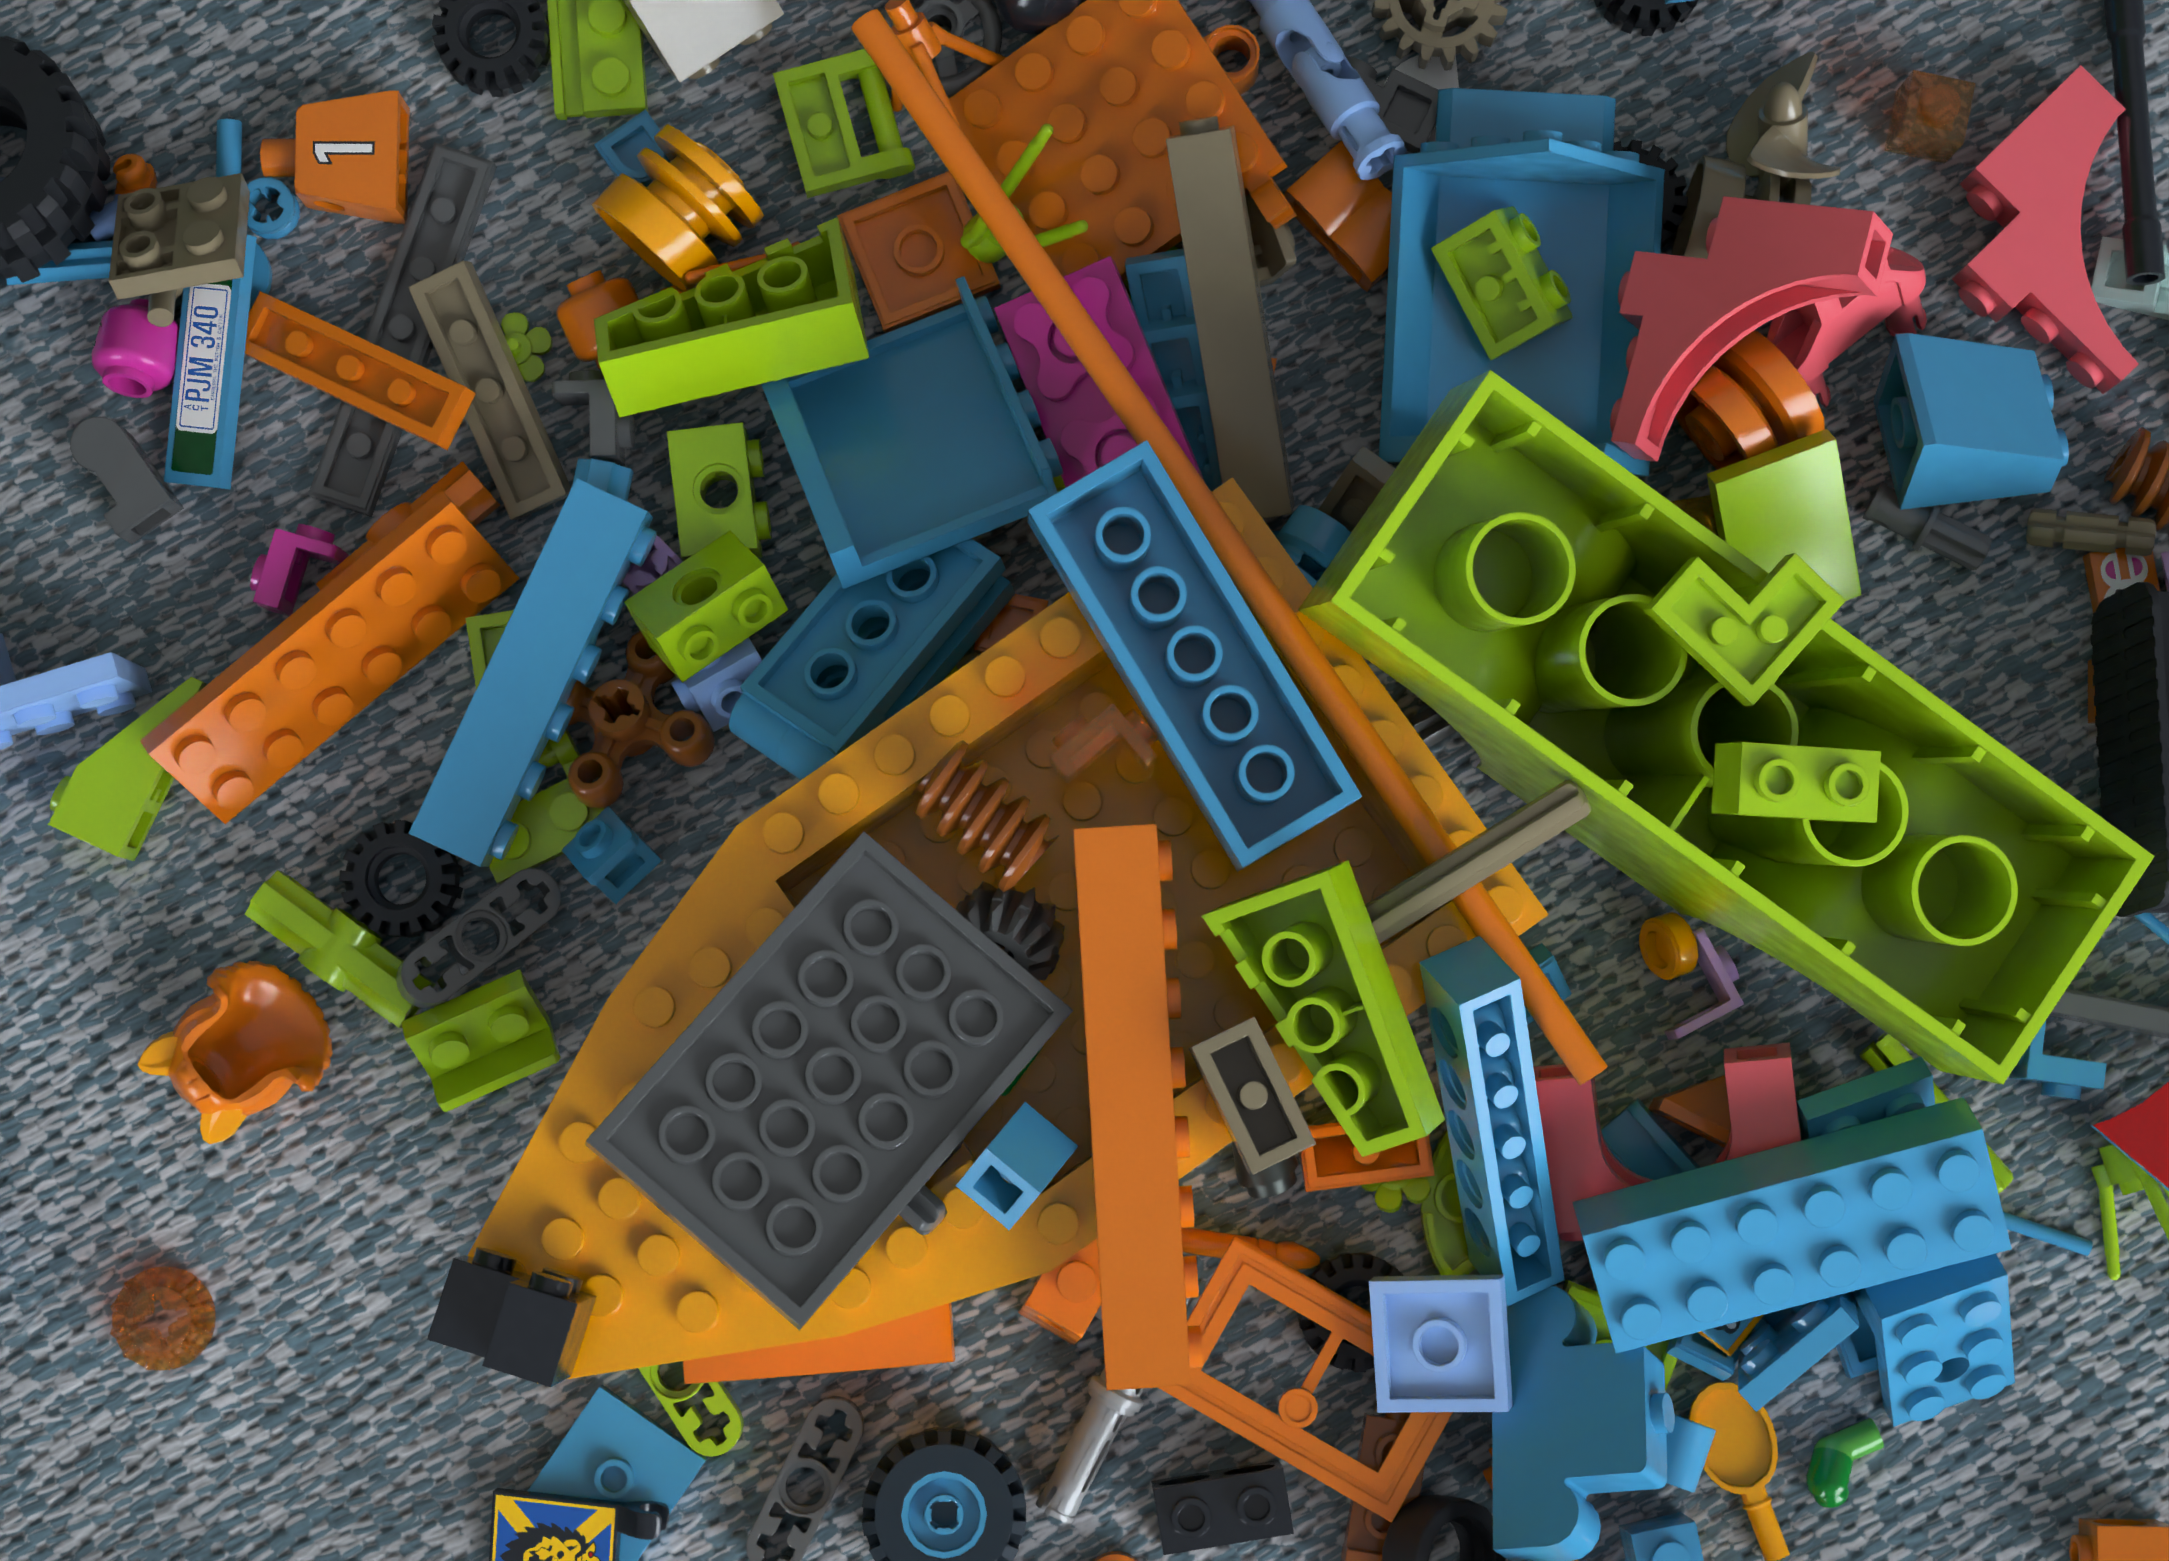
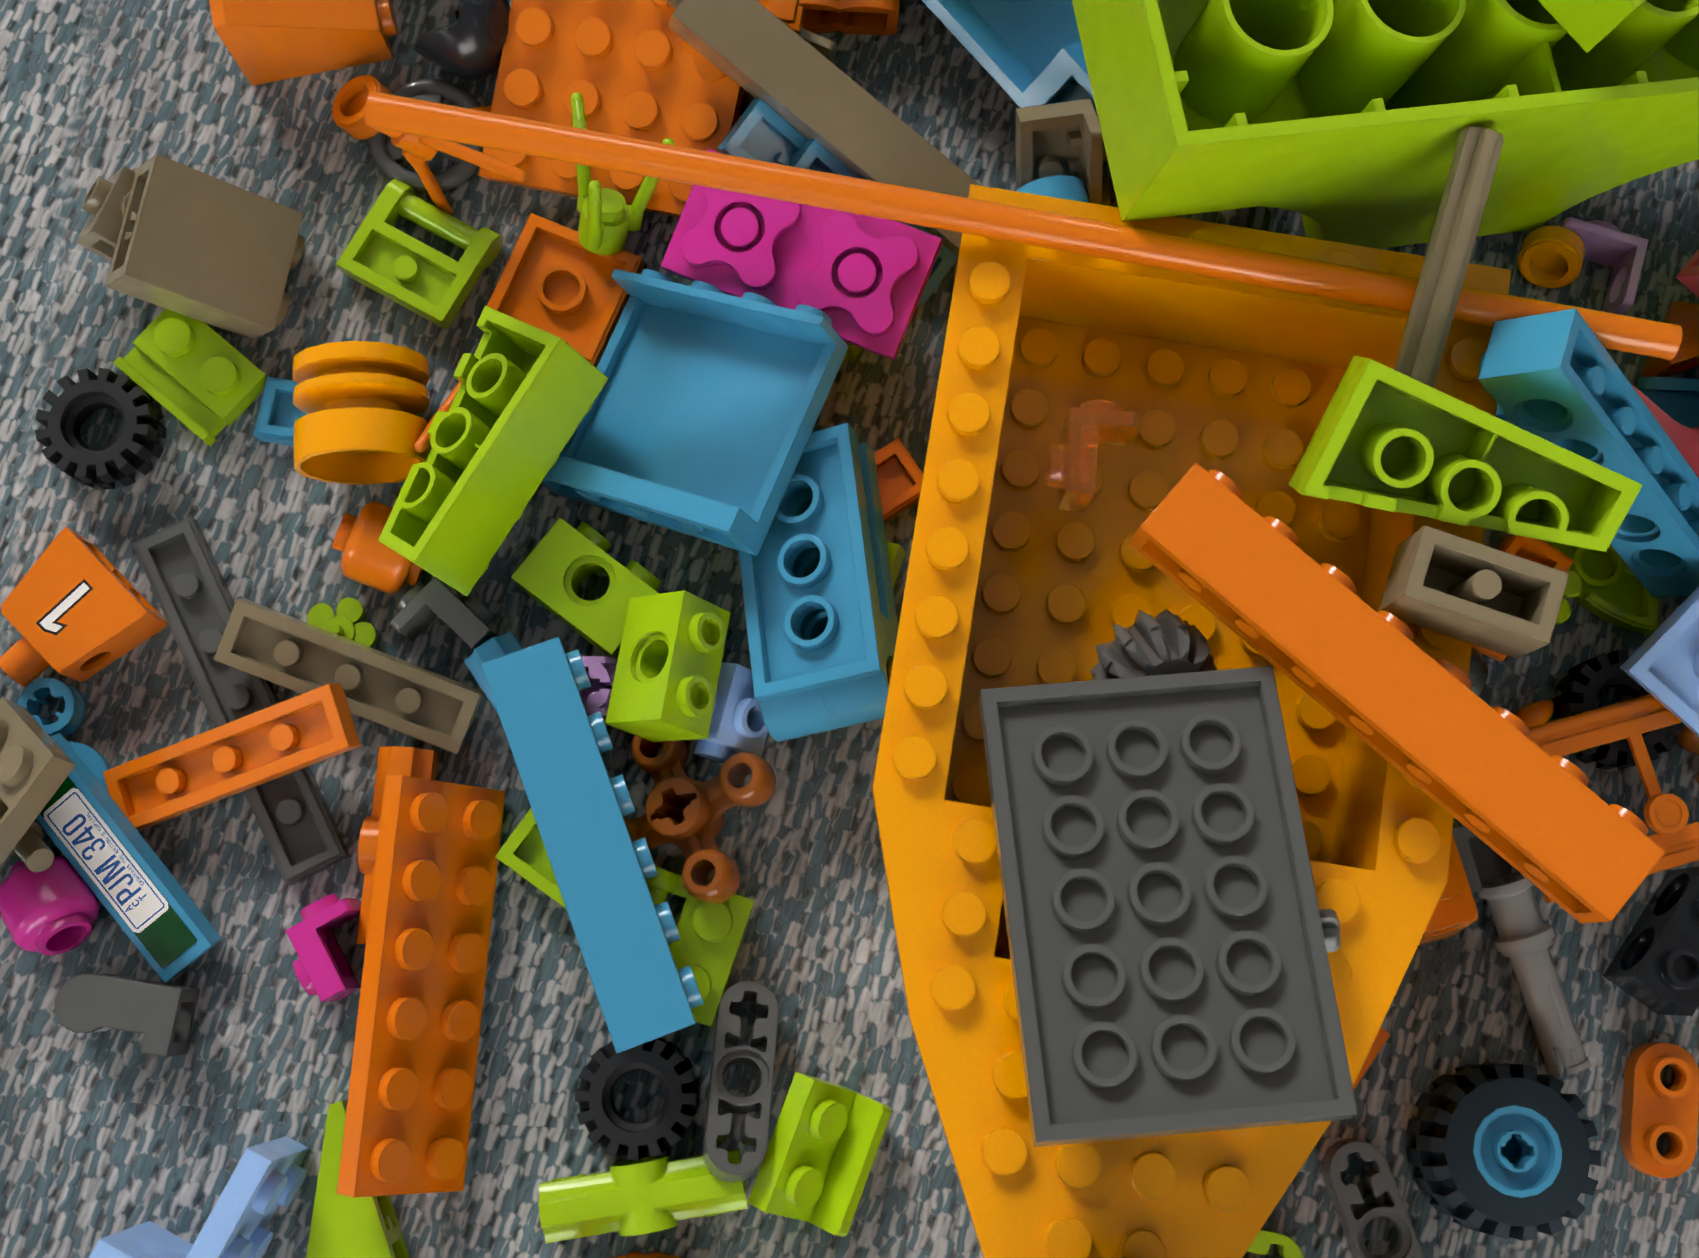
camera: 45 degrees left, 5 degrees down
(611, 855) = (775, 920): dark azure bracket -> none
(983, 816) = (1058, 586): dark orange piece -> none
(1026, 1156) = (1361, 822): dark azure brick -> none
(1192, 656) = (1094, 319): dark azure brick -> none

